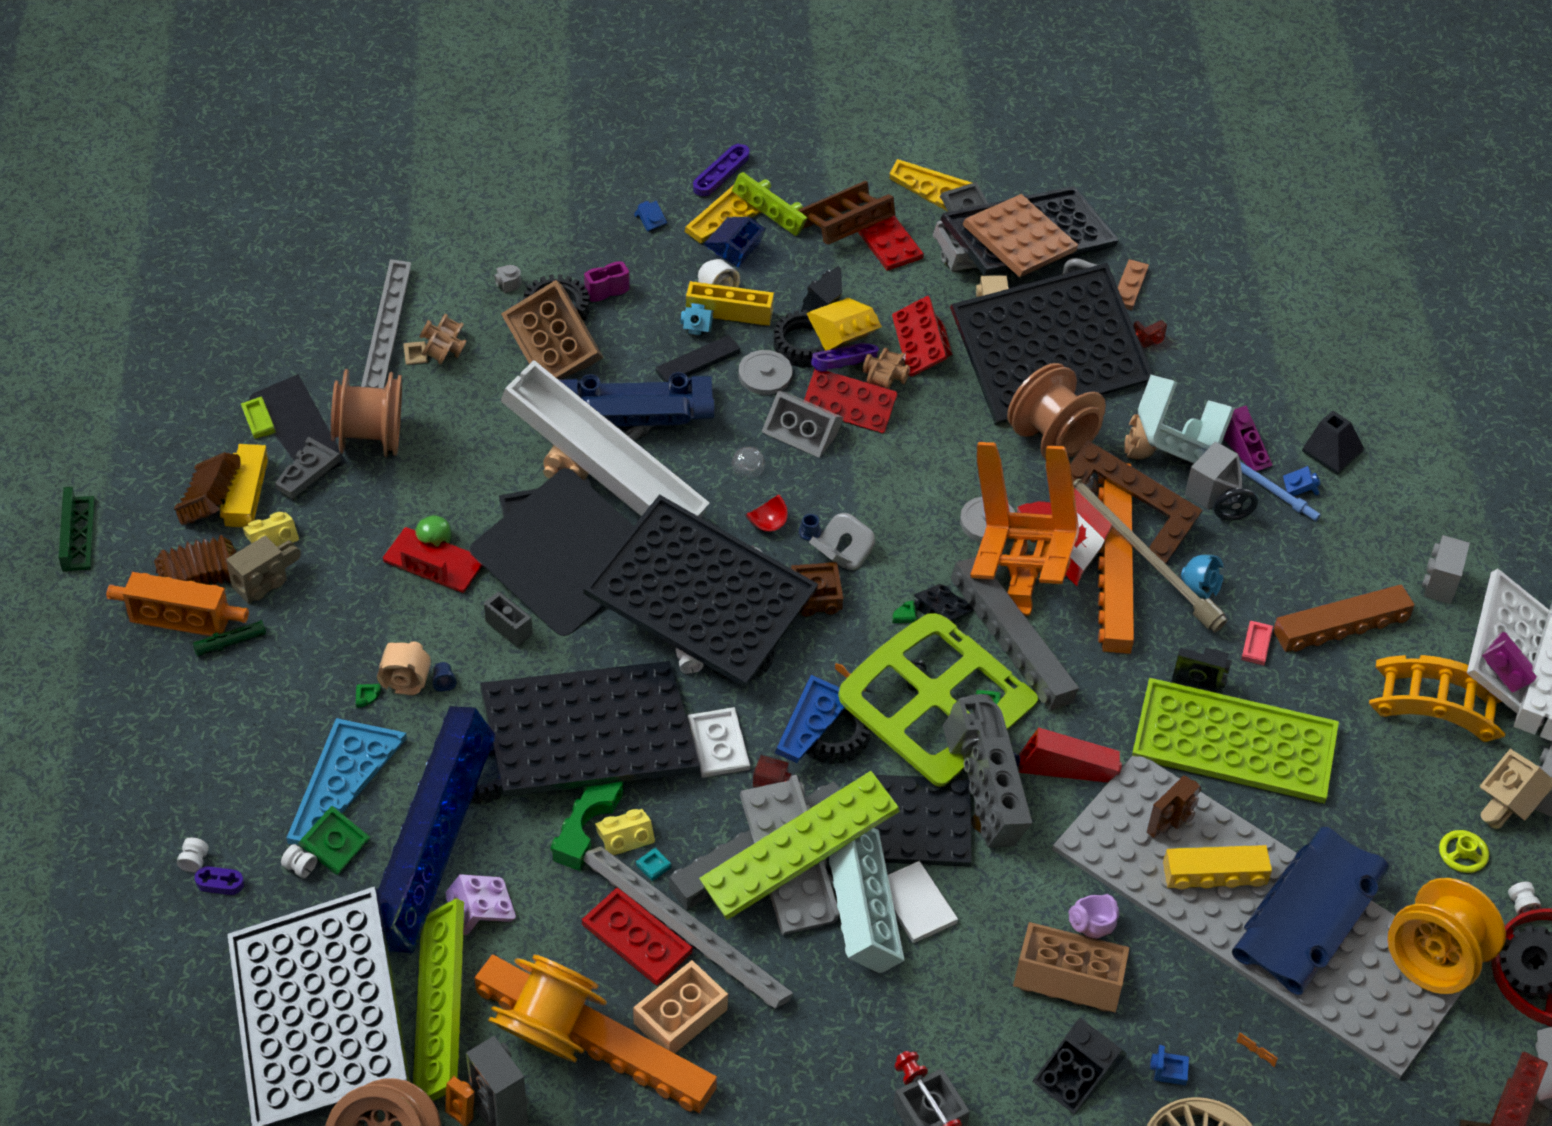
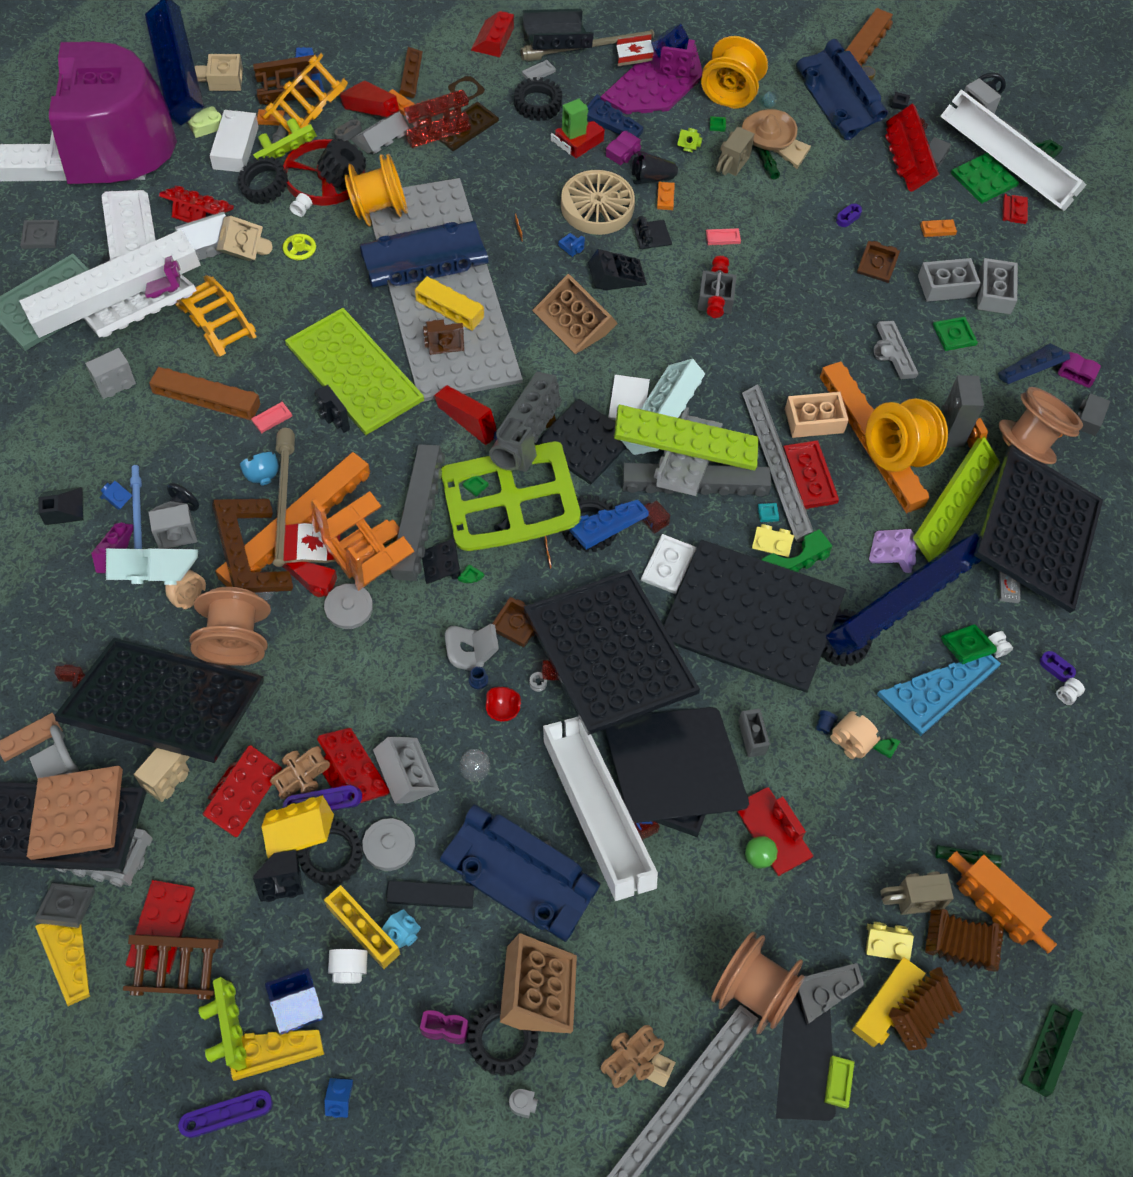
camera: 145 degrees left, 10 degrees up
(1094, 915) = (540, 325): lavender hair -> none

